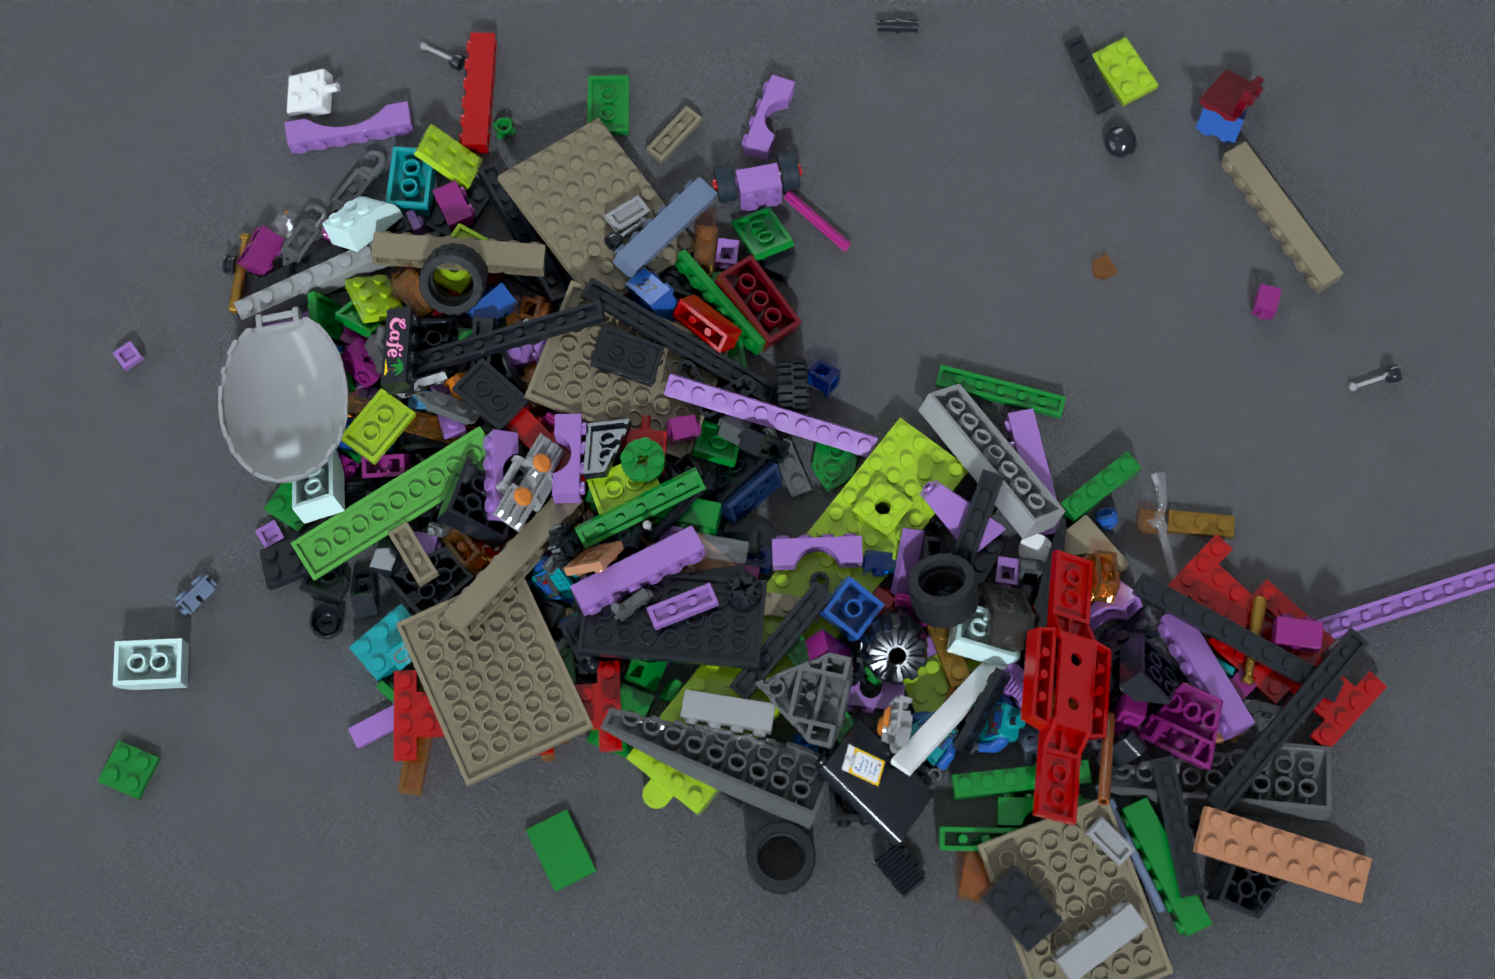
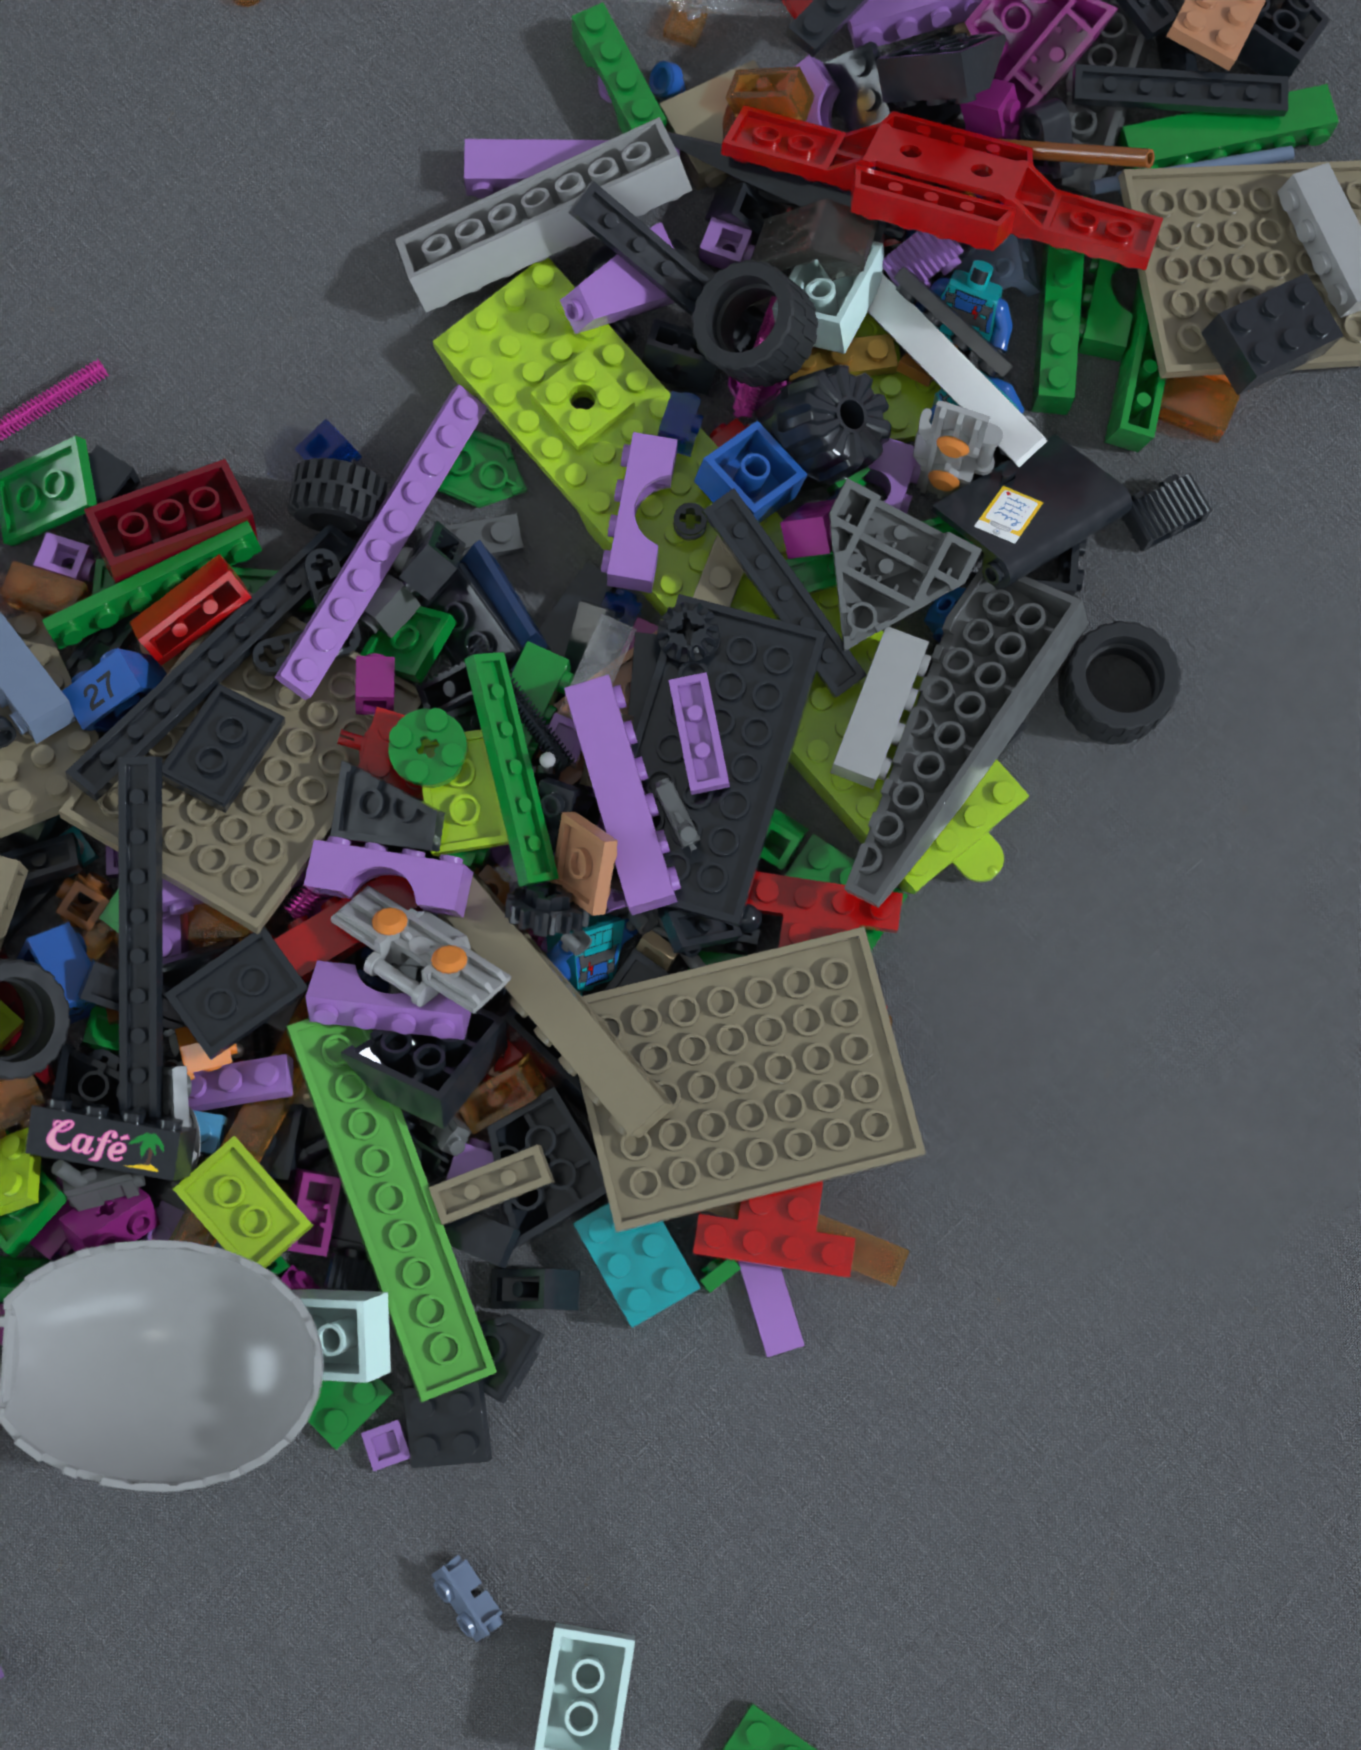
camera: 85 degrees left, 5 degrees up
(326, 621) = (571, 1364): black hair -> none
(399, 655) = (668, 1237): teal tile -> none
(450, 407) = (240, 1071): dark grey plate -> none
(561, 850) = (1039, 1032): green tile -> none
(670, 690) = (811, 804): green tile -> none
(907, 557) = (671, 378): medium lavender tile -> none
(1002, 391) = (419, 186): green plate -> none
(1035, 548) = (695, 204): white sticker -> none
(1110, 841) = (1190, 184): light grey tile -> none

